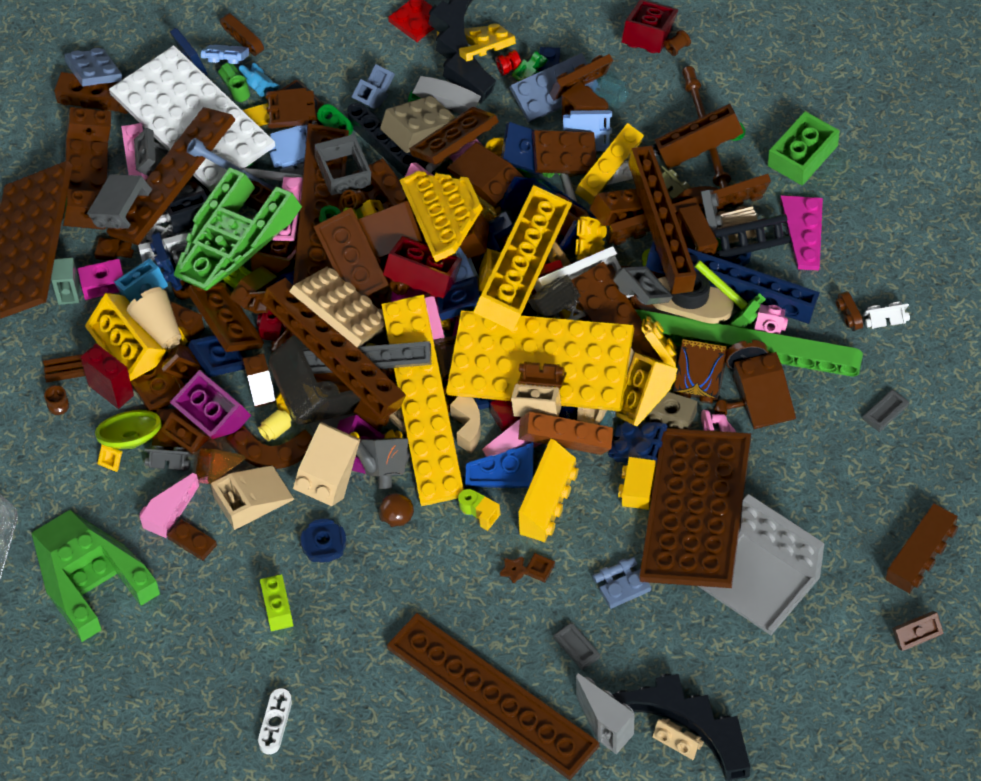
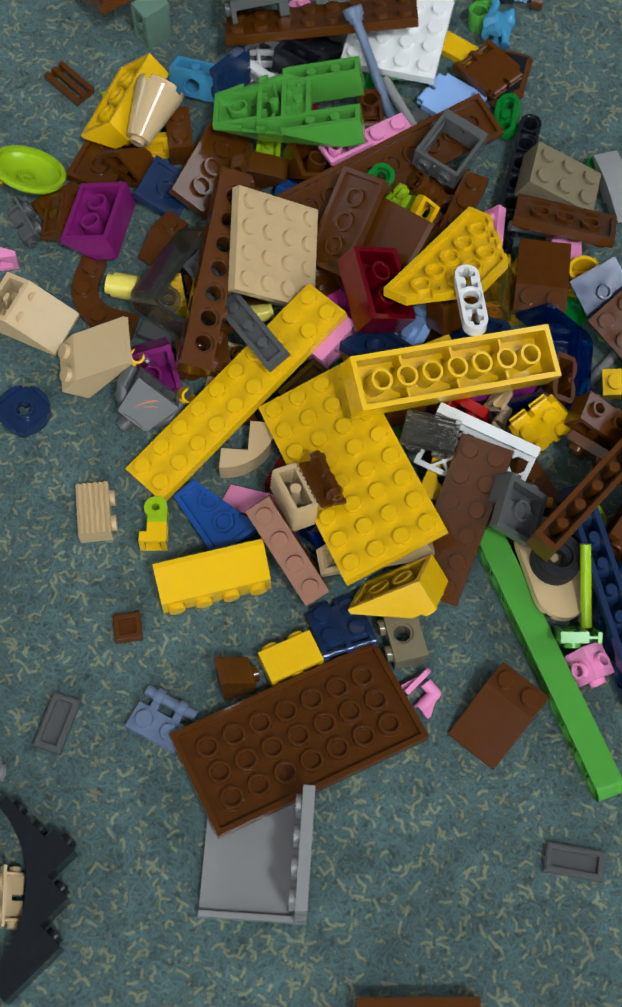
camera: 50 degrees right, 10 degrees up
(56, 400) = (25, 96): reddish brown wheel -> none
(100, 278) = (178, 41): dark pink brick -> none
(107, 376) = (68, 114): dark red brick -> none
(110, 249) = (216, 33): reddish brown plate -> none
(215, 463) = (40, 263): clear orange slope -> none
(374, 90) = (568, 125): sand blue brick -> none
(396, 510) = (103, 452): reddish brown hair -> none
(440, 538) = (95, 512): none -> tan brick
(481, 204) = (465, 309): none -> white beam
(516, 574) = (109, 610): reddish brown plate -> none
(627, 521) = (235, 676): none -> reddish brown slope
(664, 347) = (468, 570): yellow plate -> none
(700, 371) = (472, 634): reddish brown slope -> none
(722, 406) = (449, 684): reddish brown hand -> none
(744, 350) = (517, 660): tile -> none

